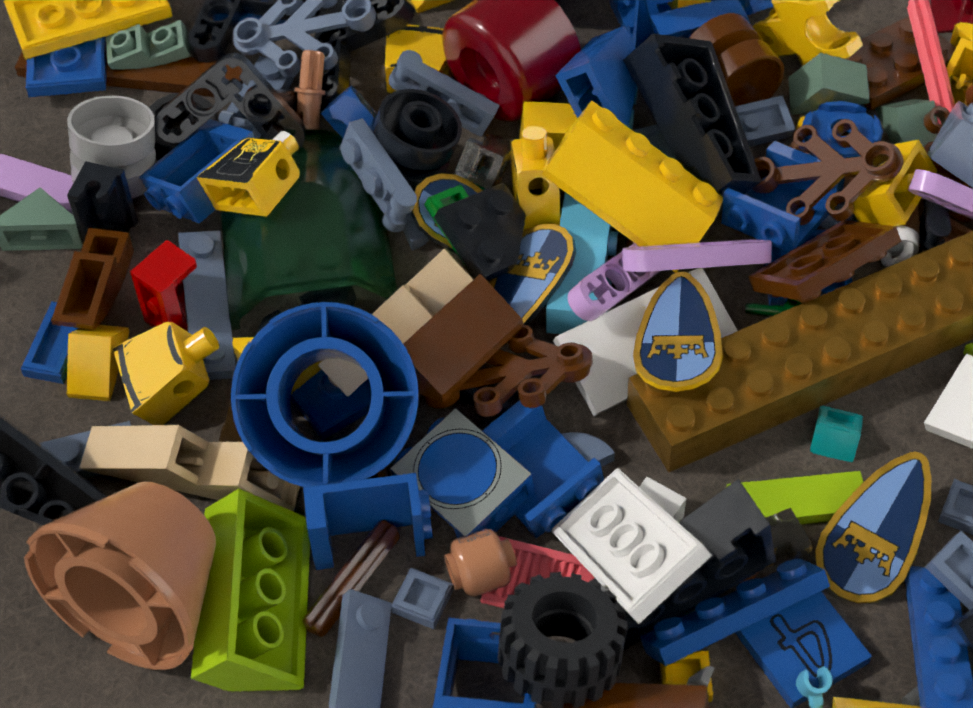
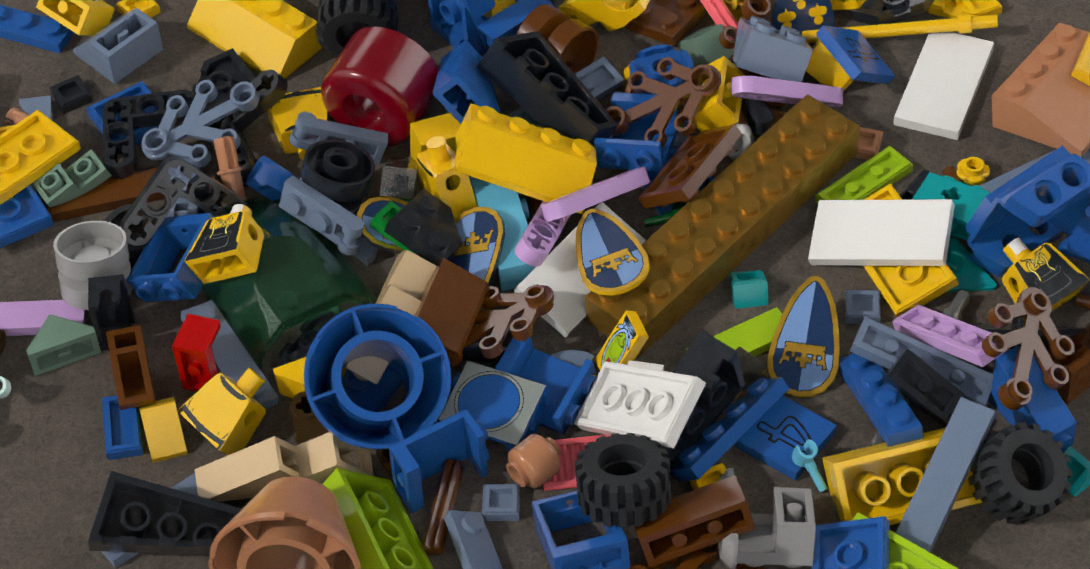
camera: 20 degrees left, 5 degrees down
(650, 451) = (624, 341): none -> tile
(827, 80) = (631, 35): sand green slope -> none

